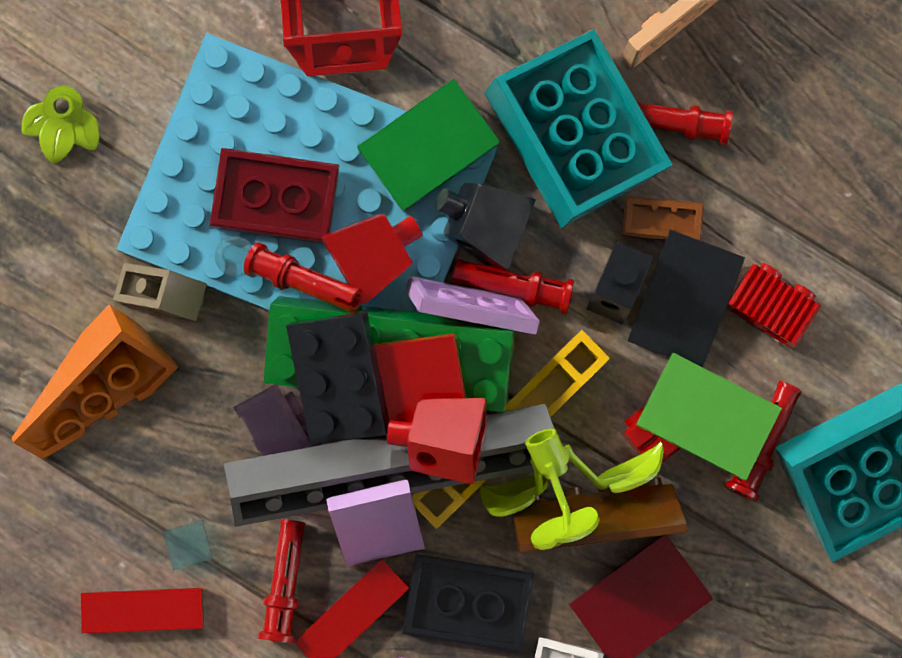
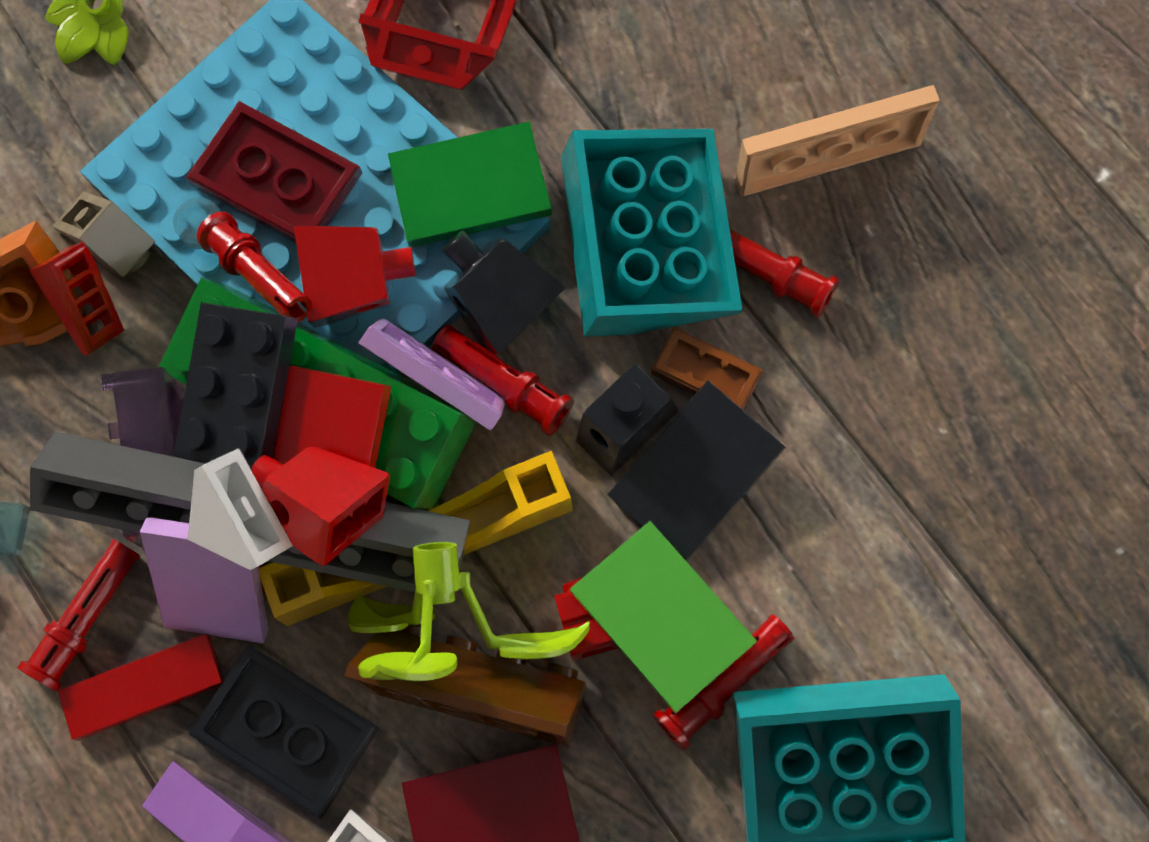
camera: 30 degrees right, 10 degrees down
(151, 346) = (58, 292): none -> red slope
(398, 475) = (233, 513): none -> white slope
(773, 304) = (800, 519): red brick -> none

